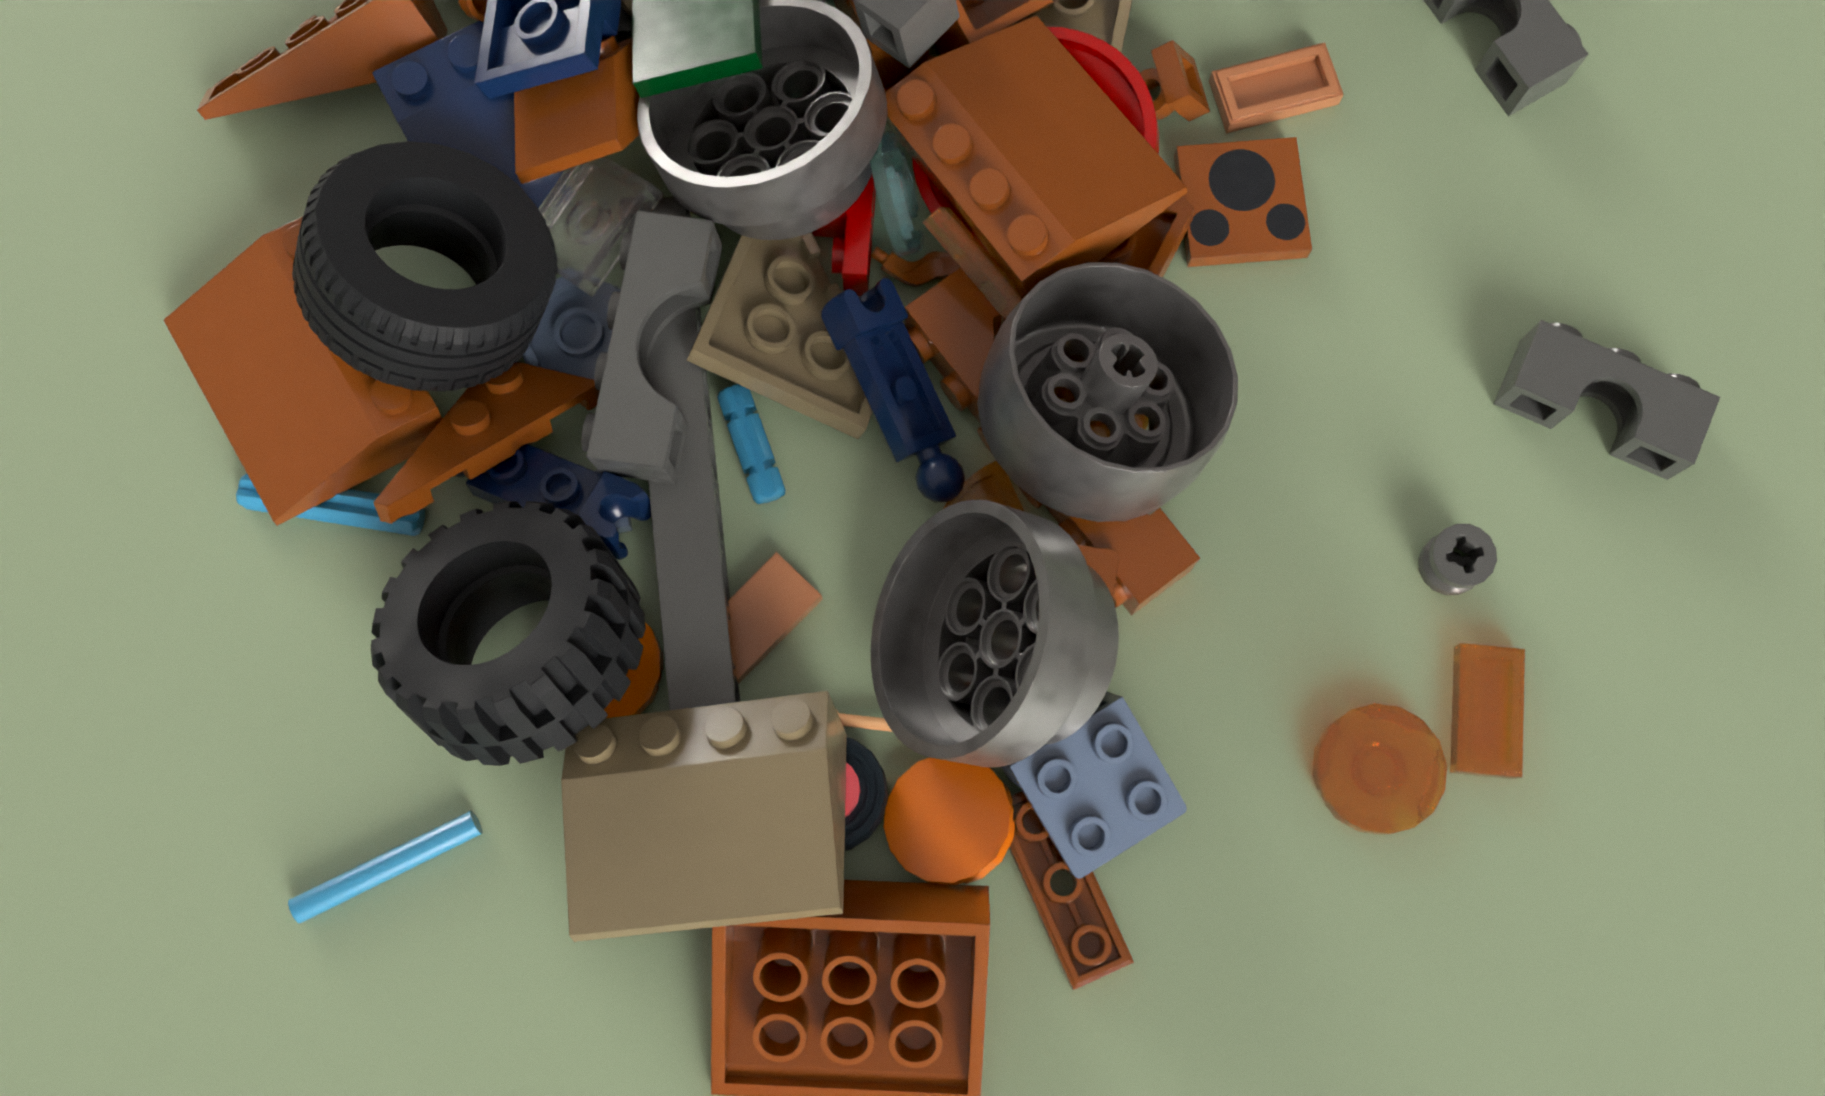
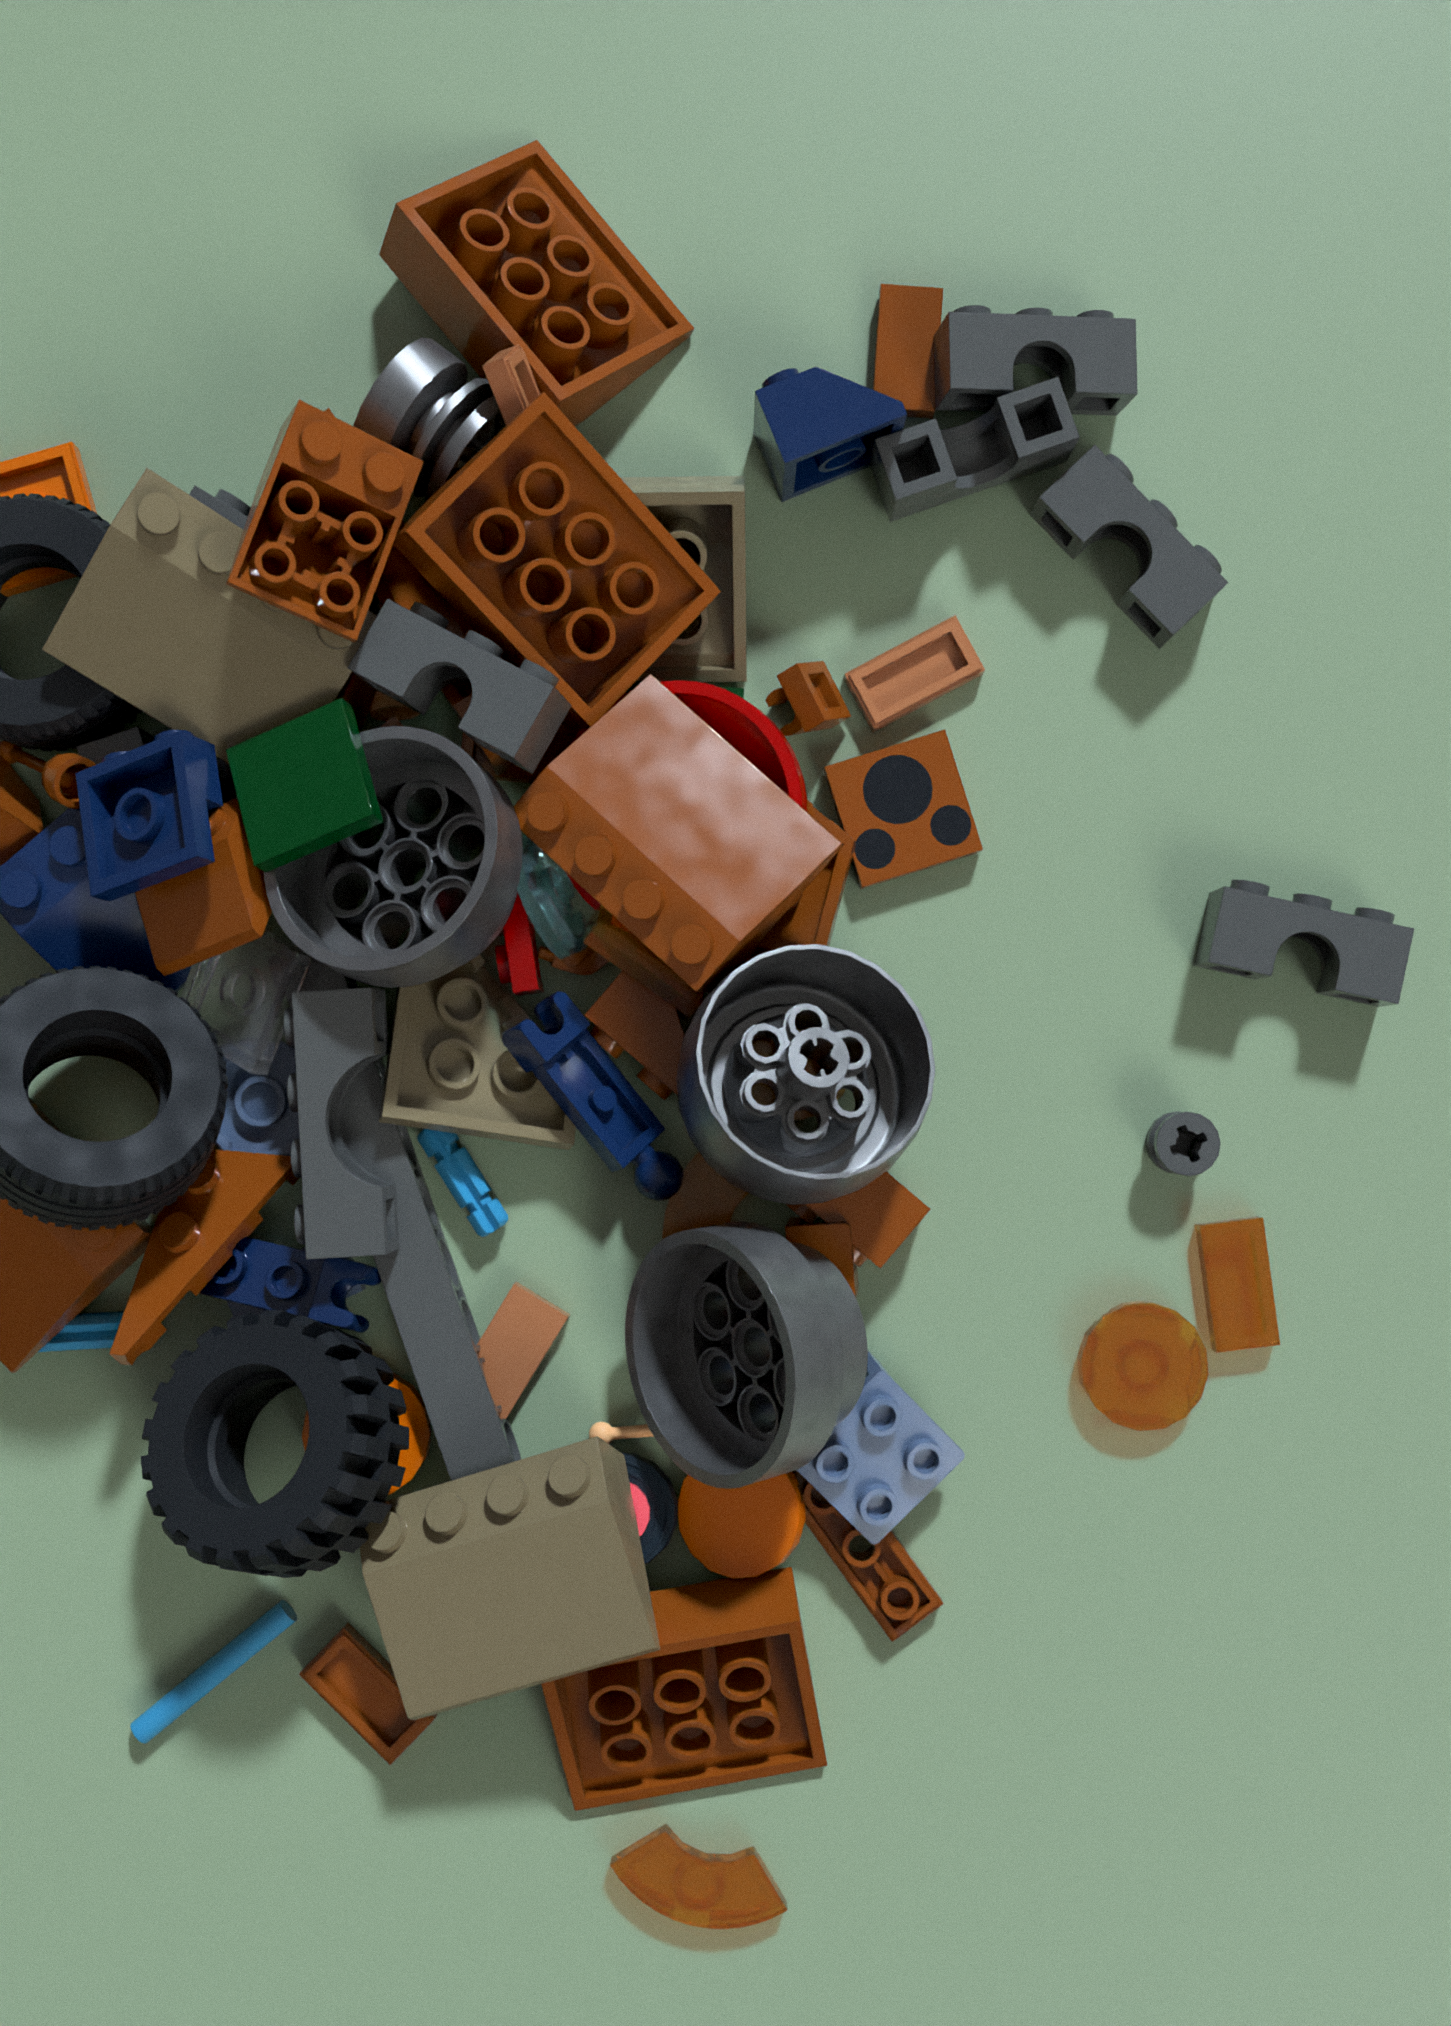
camera: 10 degrees left, 10 degrees up
(532, 924) = (364, 1692): none -> dark orange tile

